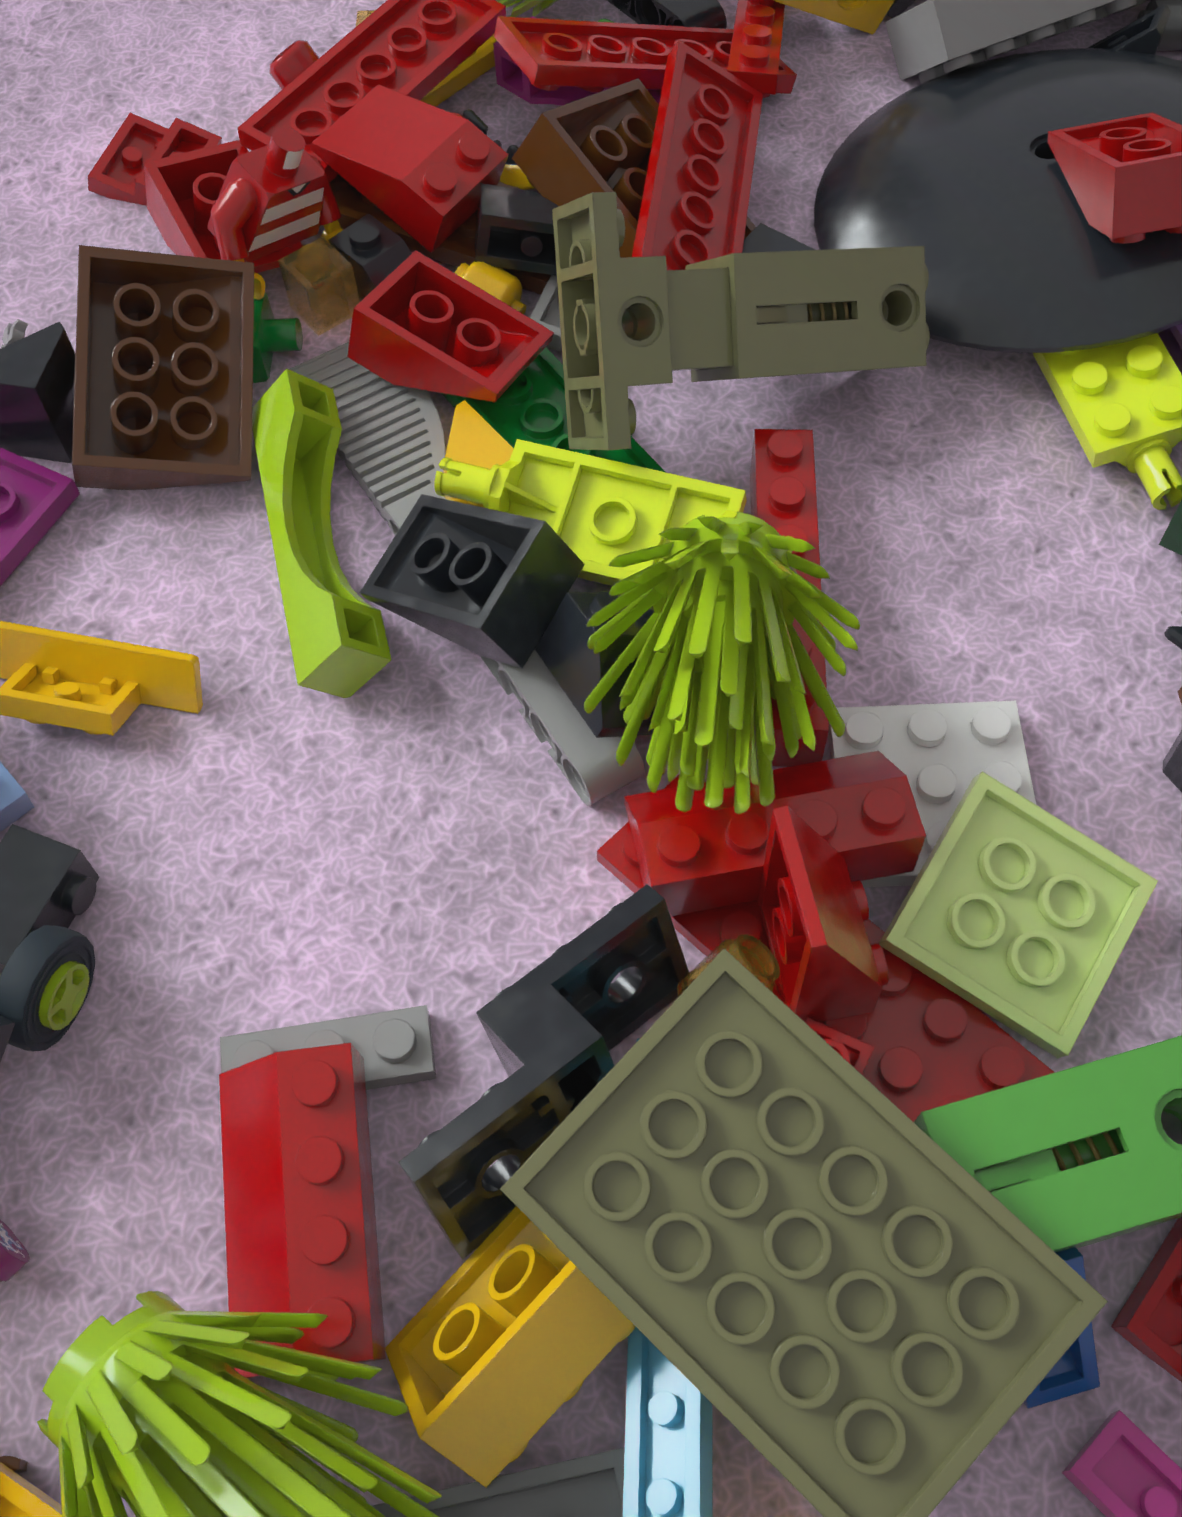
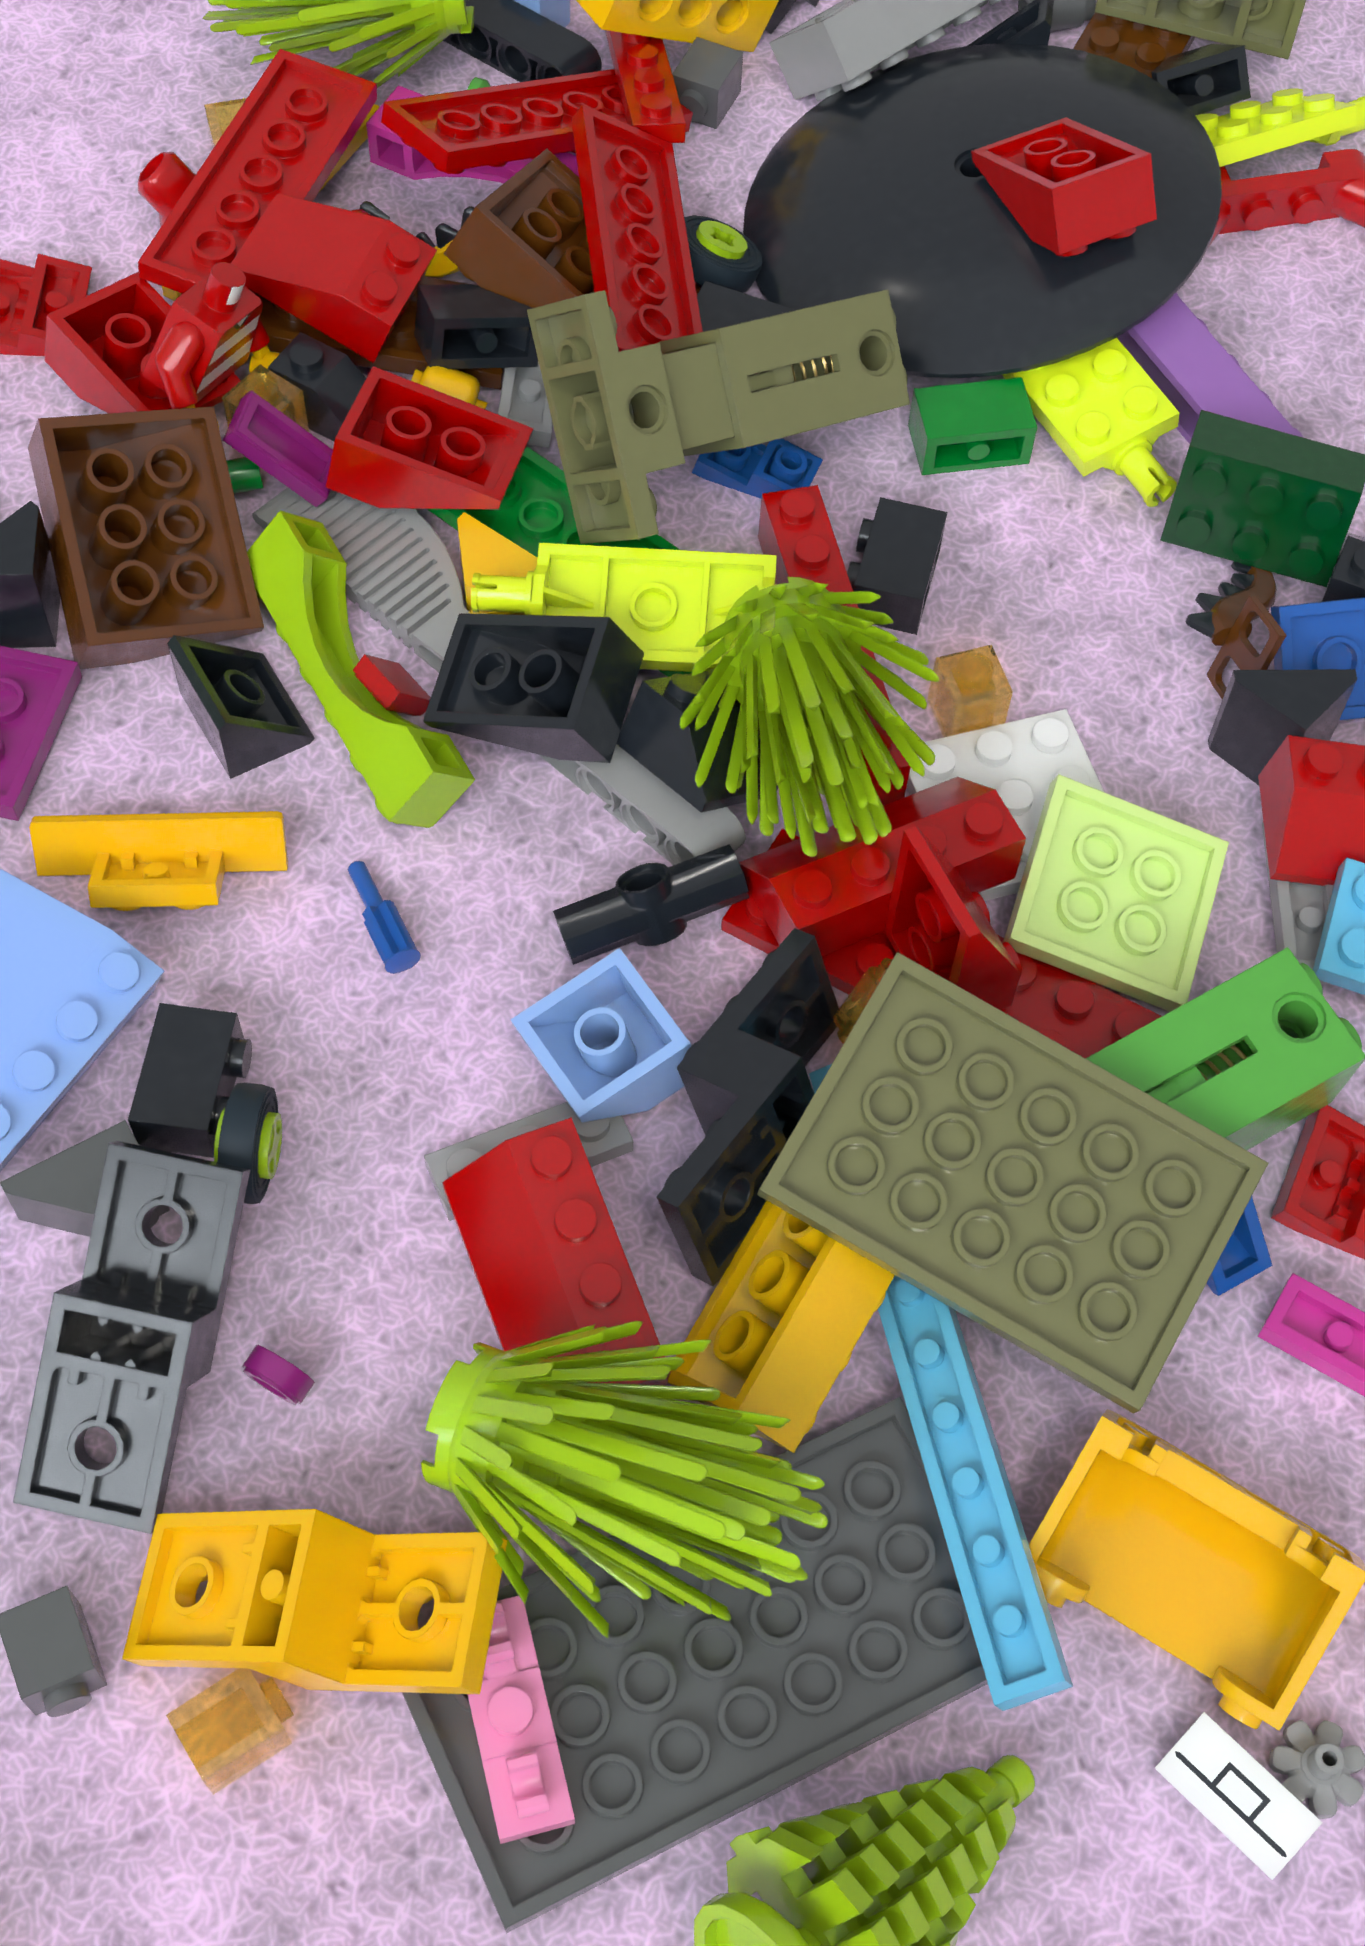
camera: 20 degrees left, 0 degrees up
(202, 543) = (237, 703): none -> black slope
(266, 786) = (384, 923): none -> blue axle
(311, 312) = (280, 447): none -> magenta tile
(347, 550) = (392, 685): none -> red tile
(427, 959) = (606, 1041): none -> light blue slope
(525, 821) = (651, 904): none -> black piece
(766, 405) = (760, 467): none -> blue slope
(784, 202) = (721, 254): none -> black wheel
(819, 50) = (709, 81): none -> dark grey brick
(875, 522) = (898, 560): none -> black brick
(916, 663) = (970, 691): none -> clear yellow brick
(990, 399) = (972, 426): none -> green brick

